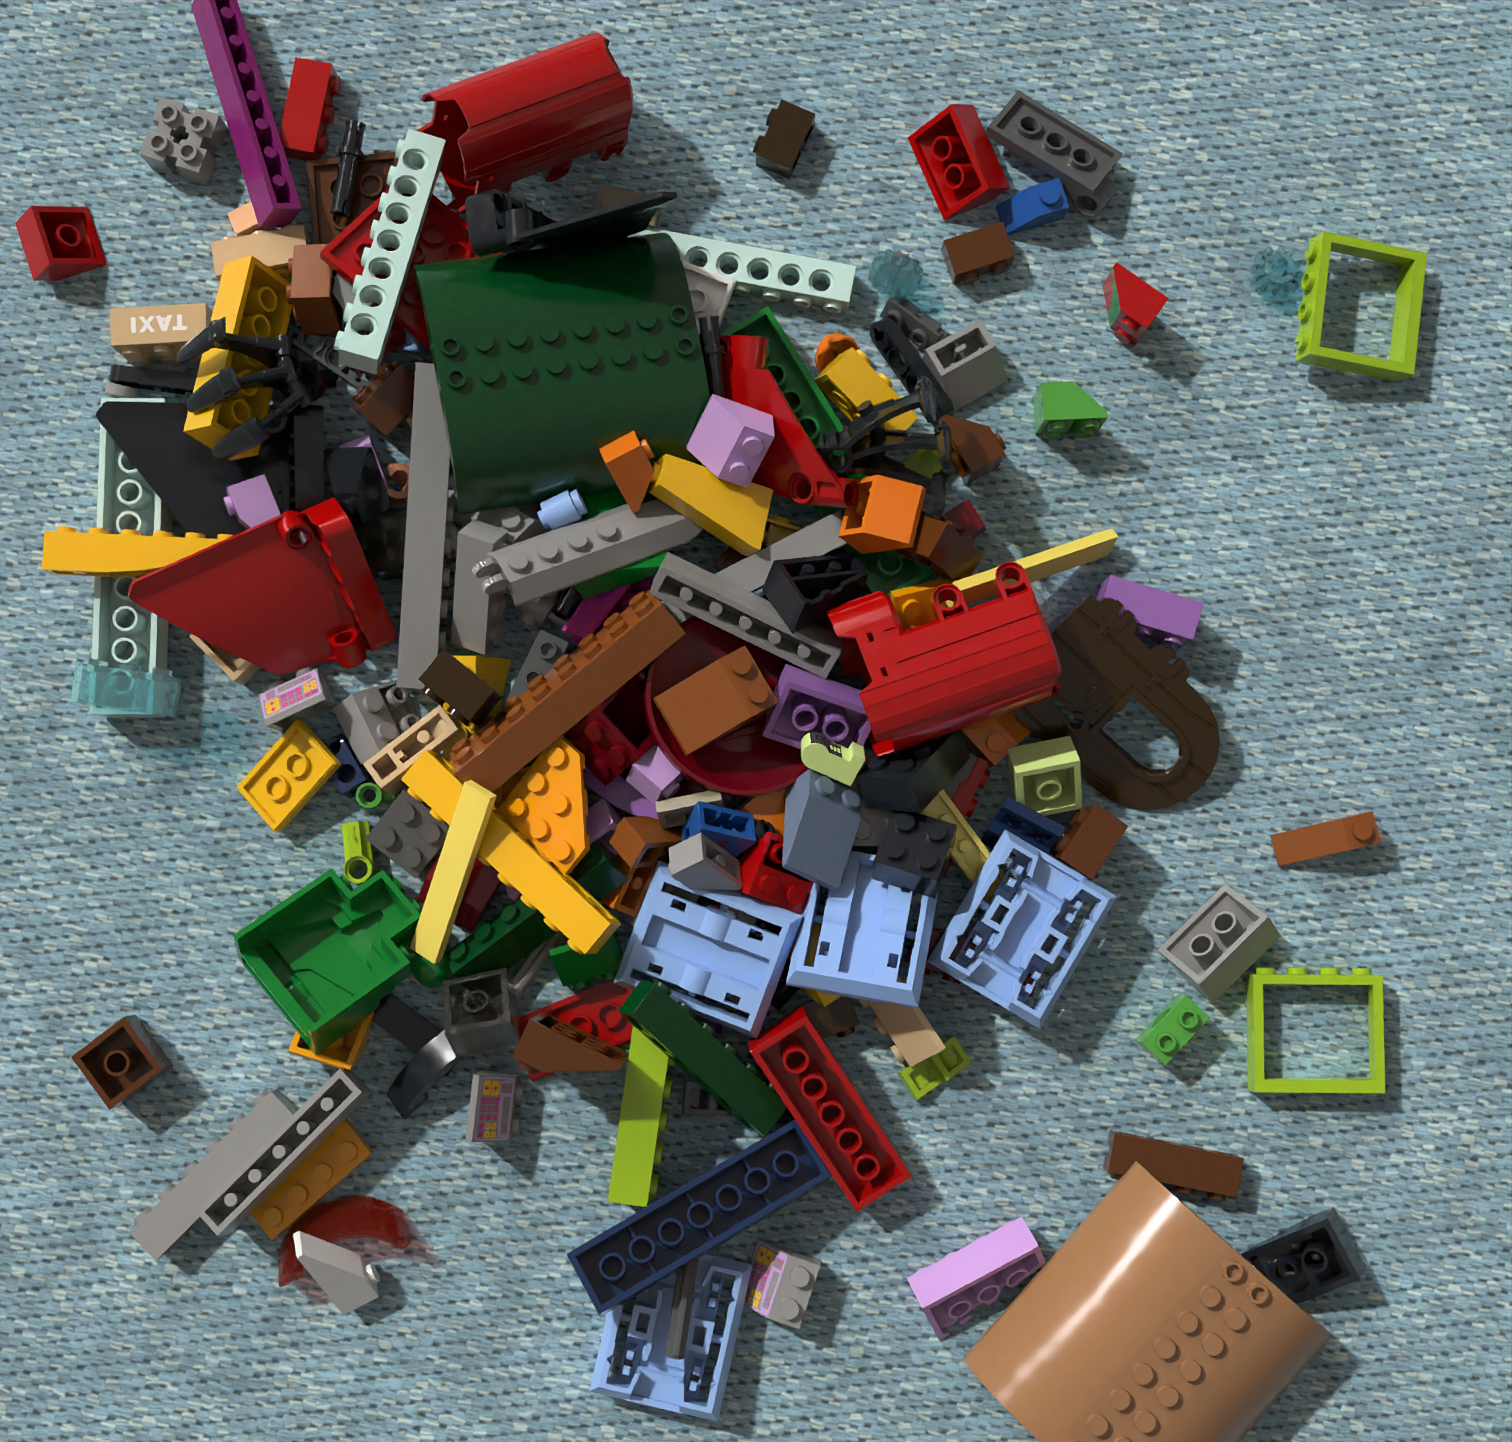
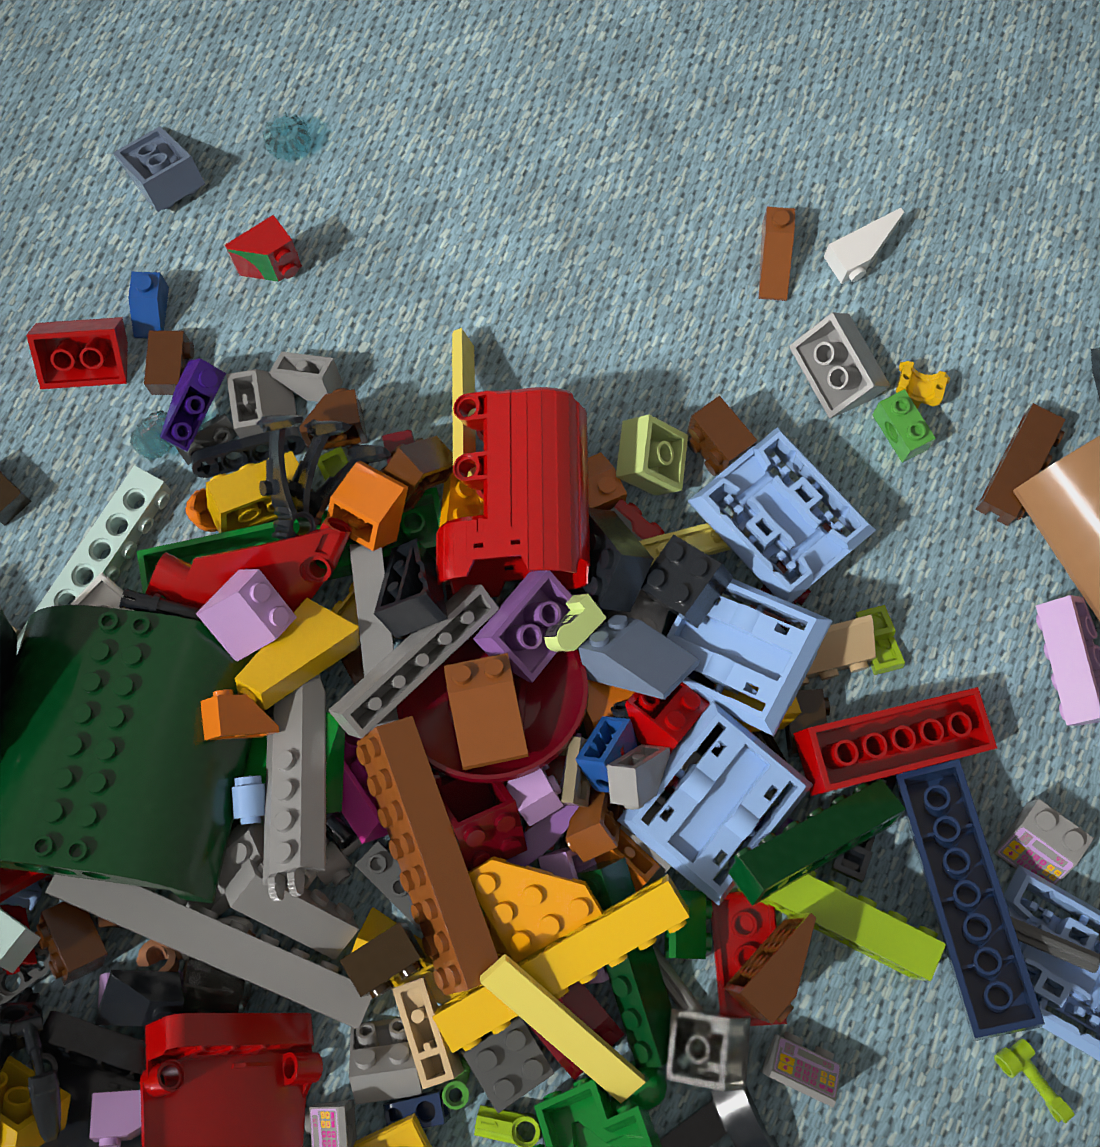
camera: 70 degrees left, 10 degrees down
(571, 1310) = (1017, 1059): none -> lime brick
(937, 296) = (191, 402): none -> dark purple slope
(1011, 399) = (307, 374): none -> light grey slope
(1023, 823) = (685, 485): dark blue slope -> none
(1066, 409) = (336, 330): bright green slope -> none
(1081, 182) = (141, 255): dark grey hinge -> none
(1099, 675) = (580, 364): dark brown door -> none
(1158, 613) = (535, 327): medium lavender brick -> none
(1192, 154) = (160, 168): none -> sand blue slope
(1225, 1035) = (922, 387): none -> yellow piece
(1328, 976) = (923, 360): lime window -> none
(1360, 925) = (855, 252): none -> white slope
(1406, 311) = (357, 51): lime window -> none

